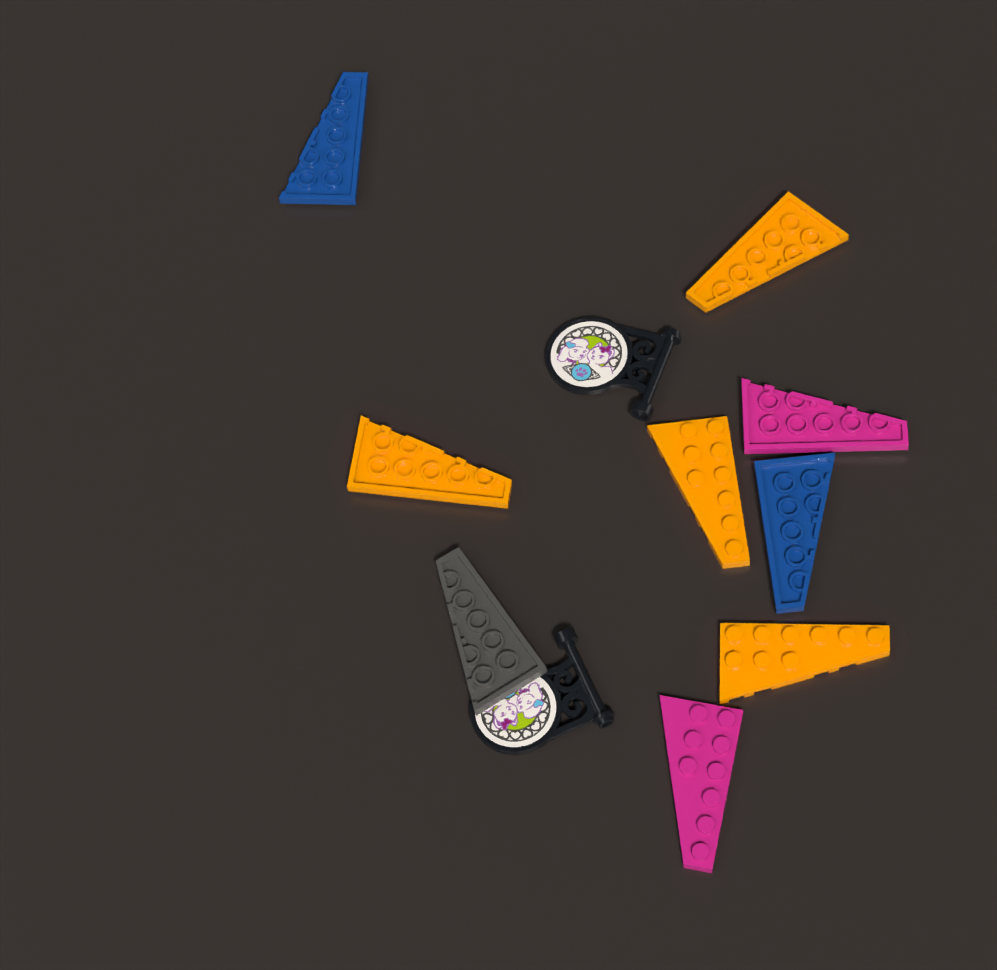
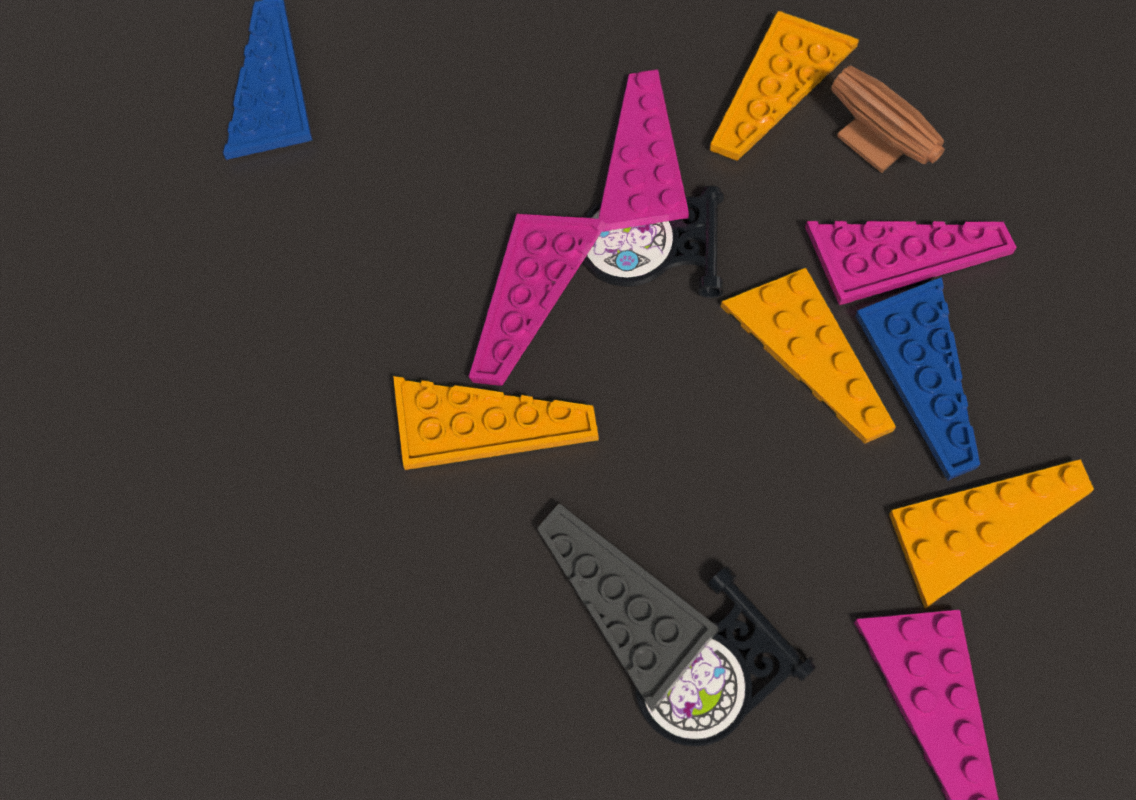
camera: 20 degrees left, 5 degrees up
(500, 363) = (533, 275): none -> dark pink wing
(623, 298) = (644, 169): none -> dark pink wing
(835, 316) = (883, 122): none -> nougat plate

